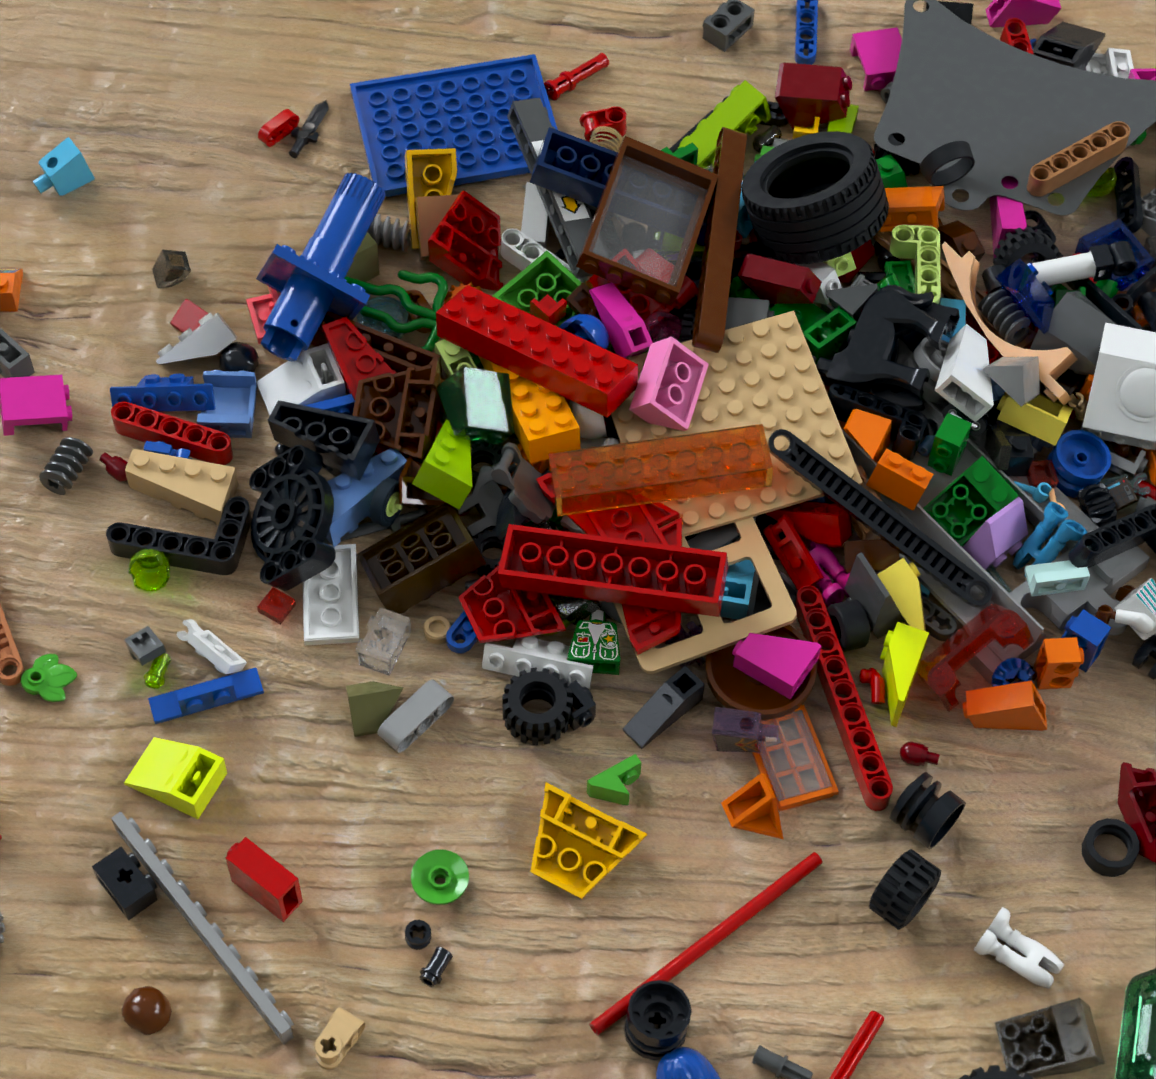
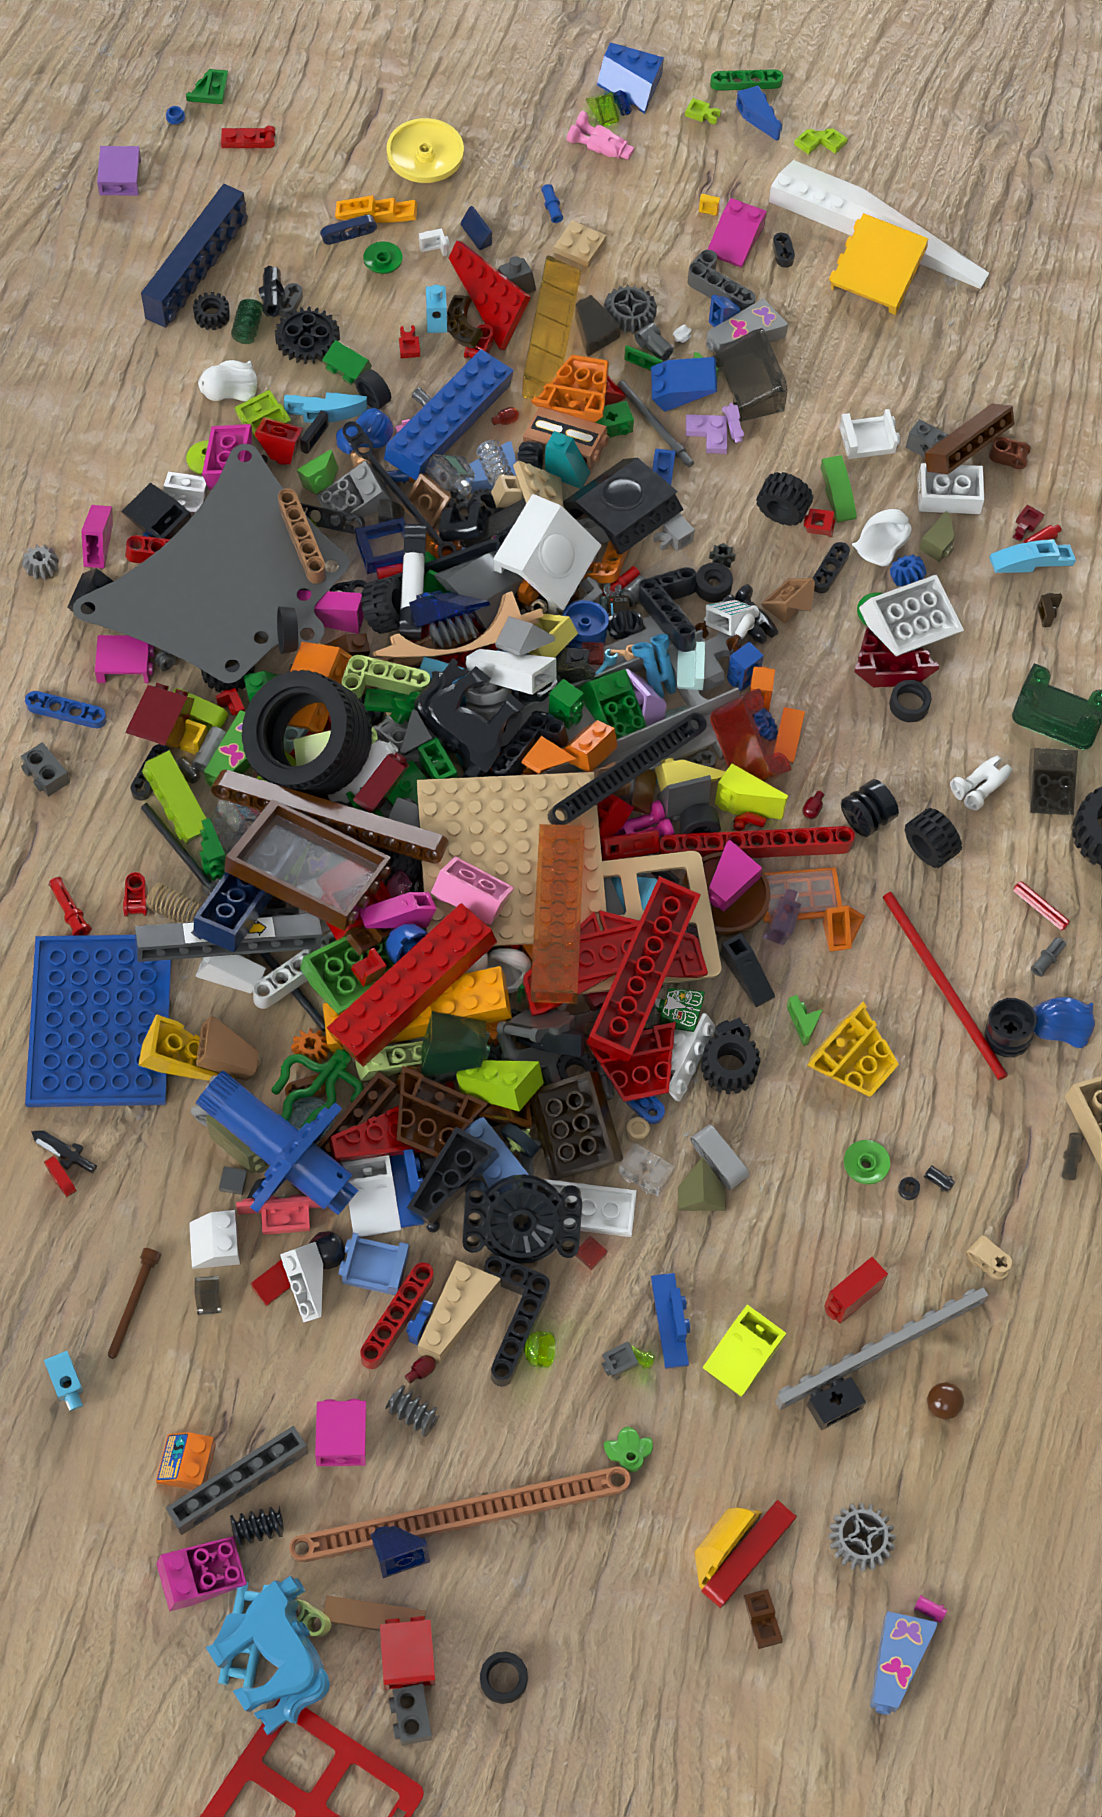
camera: 80 degrees left, 5 degrees up
(166, 394) = (352, 1316): blue bracket -> none
(202, 215) = (149, 1259): none -> reddish brown piece
(212, 648) = (626, 1309): white plate -> none
(232, 267) = (214, 1240): none -> white slope
(468, 243) = (255, 1030): red wedge -> none

